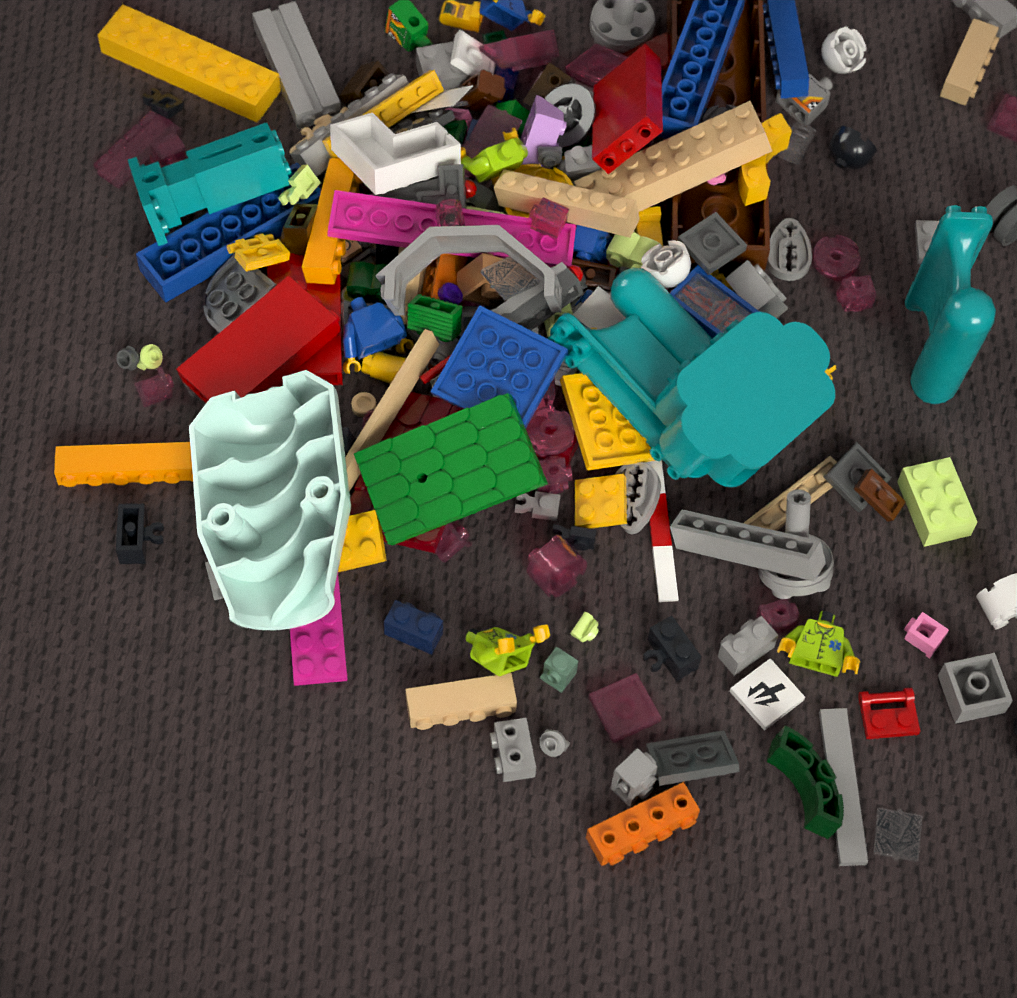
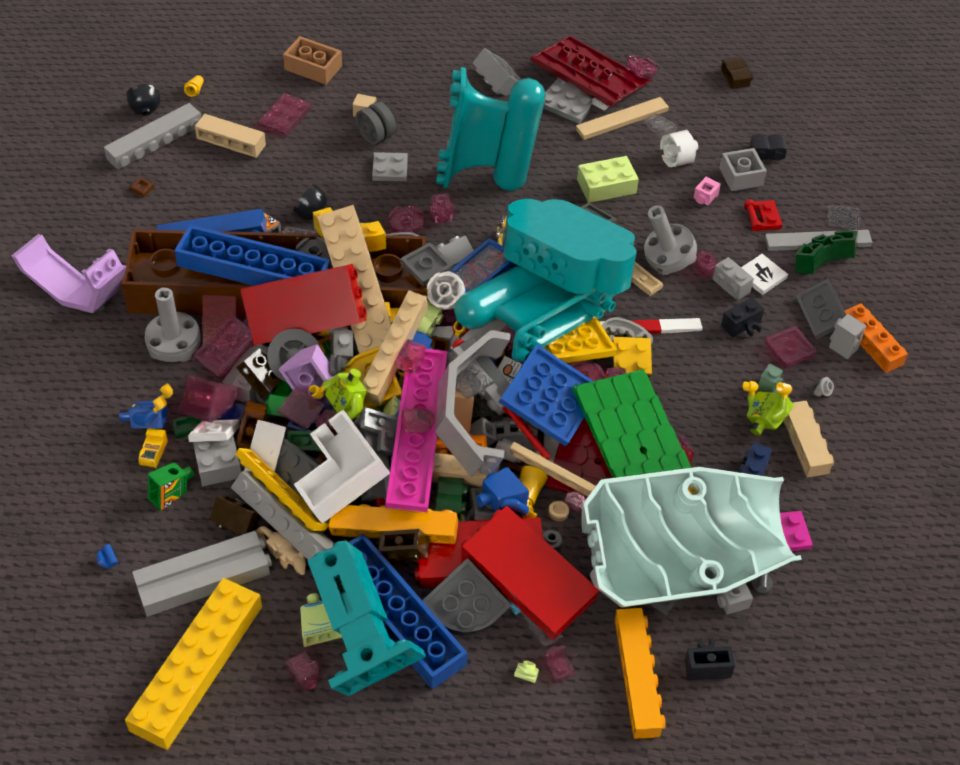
camera: 90 degrees left, 10 degrees down
(117, 169) = (296, 705): clear pink windscreen -> none
(128, 358) = (531, 687): dark grey plate -> none
(164, 105) = (242, 681): black plate -> none
(258, 251) = (435, 573): yellow plate -> none
(302, 183) = (363, 545): yellowish green plate -> none
(436, 316) = (499, 436): green brick -> none
(450, 293) = (475, 433): dark purple tile -> none
(514, 750) = (837, 407): light grey brick -> none
(555, 566) = (694, 379): clear pink brick -> none
(578, 537) = (663, 369): black plate -> none
(585, 628) = (735, 366): yellowish green plate -> none
(748, 545) = (669, 263): light grey brick -> none
(820, 646) = (726, 240): lime torso -> none
(844, 51) = (217, 203): white cylinder -> none
(879, 495) = (607, 206): reddish brown plate -> none

